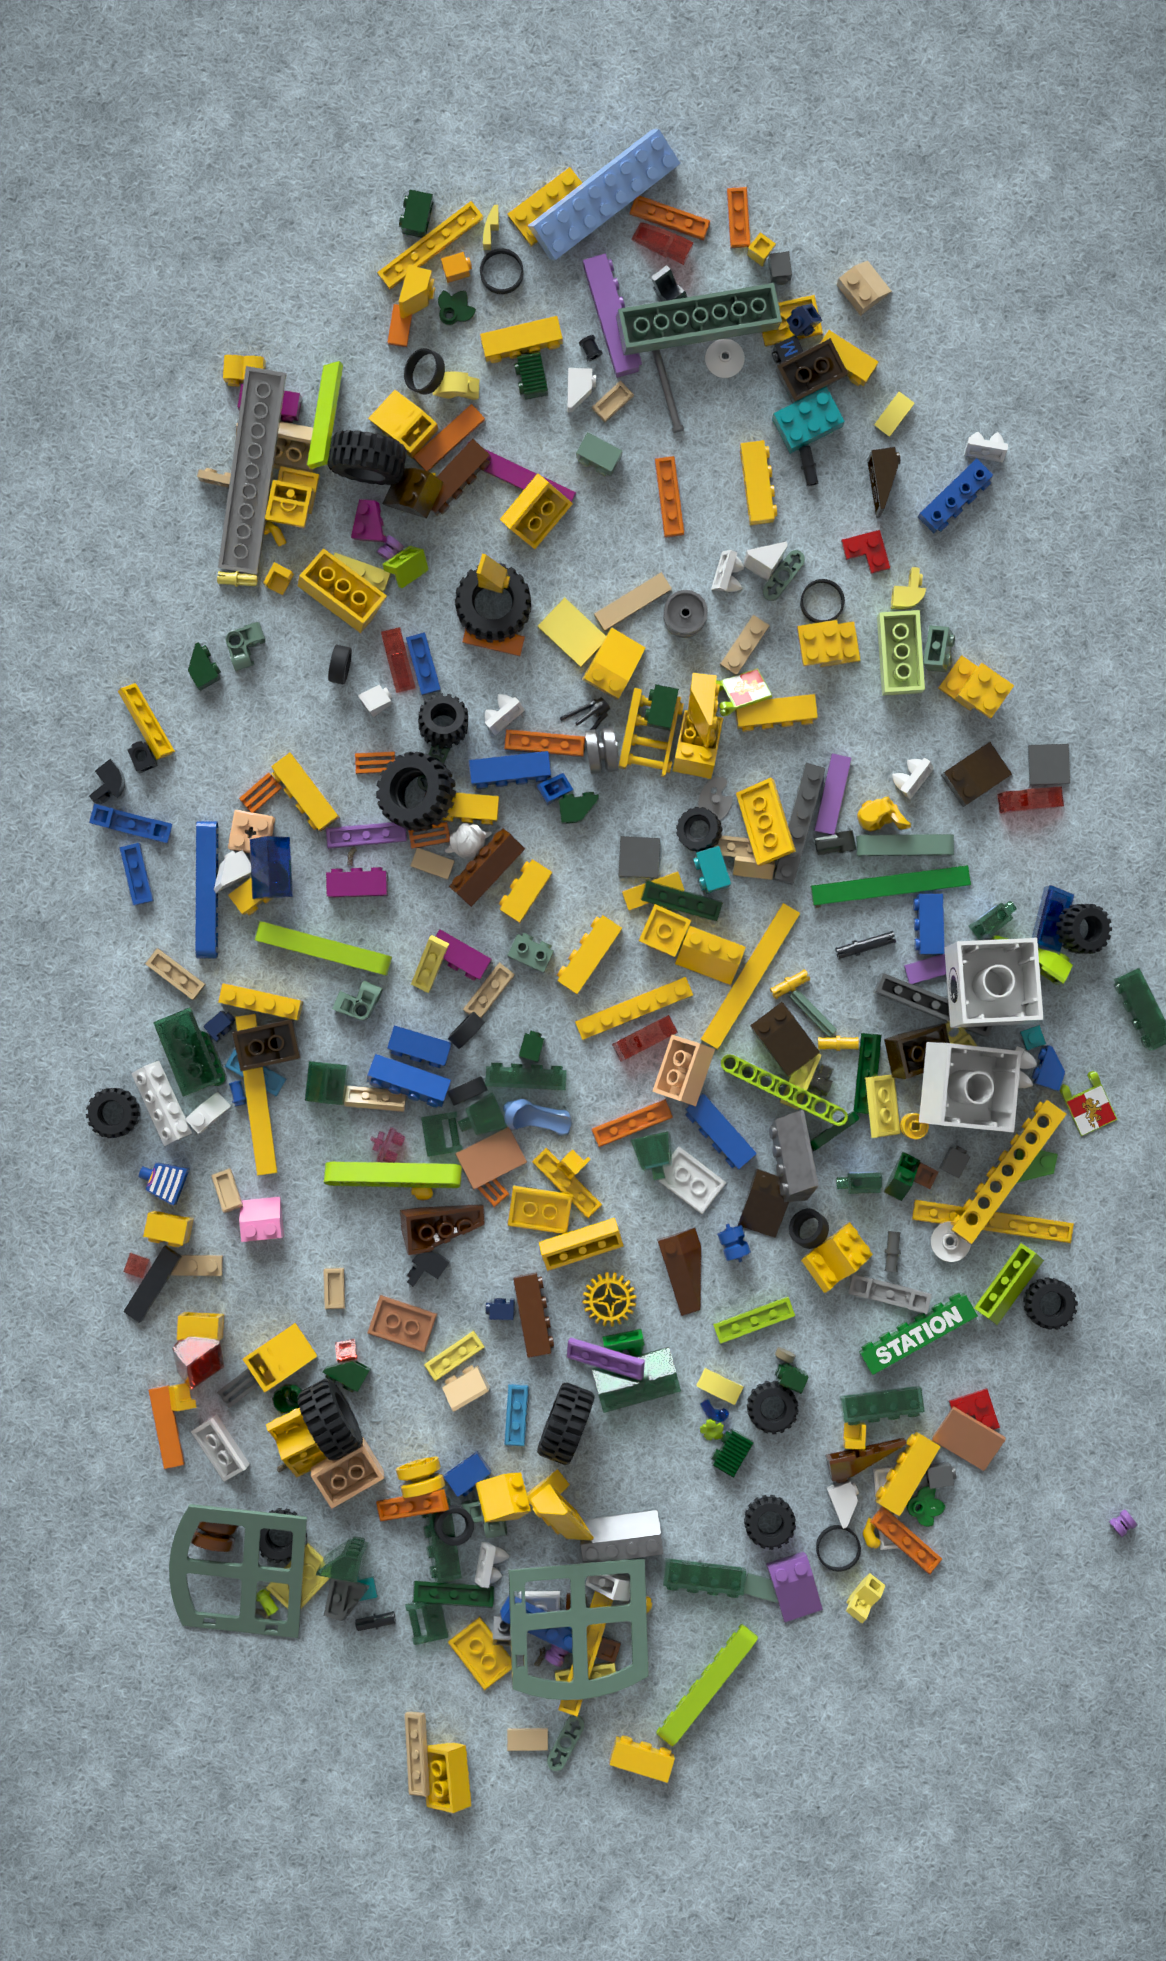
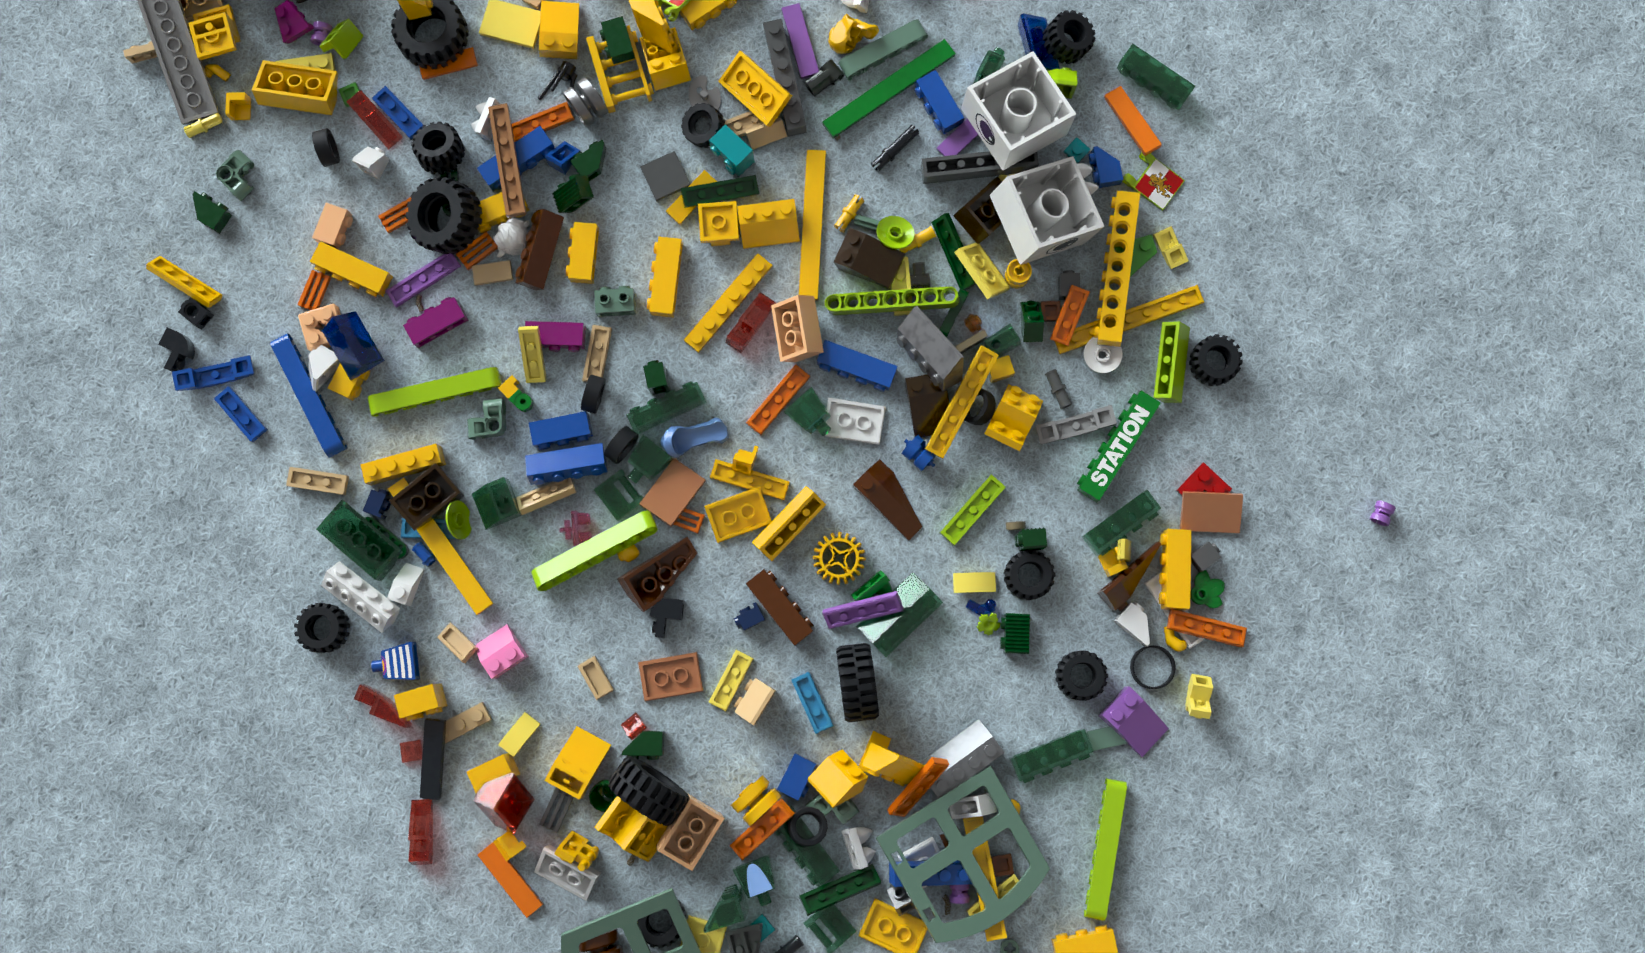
camera: 25 degrees left, 5 degrees down
(109, 1343) = (421, 832): none -> clear red slope
(131, 1211) = (381, 705): none -> clear red slope
(237, 1430) = (576, 849): none -> yellow plate
(240, 1302) = (519, 734): none -> light yellow slope
(284, 1080) = (458, 520): none -> lime dish
(308, 742) = (333, 225): none -> light nougat brick
(384, 1544) = (757, 878): none -> torso
(387, 620) = (348, 91): none -> bright green tile
(394, 991) = (519, 399): none -> leg
(500, 770) = (507, 160): none -> medium nougat plate
(544, 832) = (573, 194): none -> dark green brick
(570, 1543) = (918, 786): none -> orange tile
(796, 1220) = (961, 402): none -> yellow plate
(829, 1027) = (895, 226): none -> lime dish
(834, 1166) = (972, 341): none -> dark tan tile
(848, 1148) = (973, 323): none -> clear orange plate
(849, 1205) = (1002, 369): none -> yellow panel
(869, 1432) = (1124, 550): none -> light yellow slope
(939, 1191) = (1069, 315): none -> orange tile
(1068, 1175) = (1170, 248): none -> light yellow slope
(1099, 1038) = (1132, 121): none -> orange tile

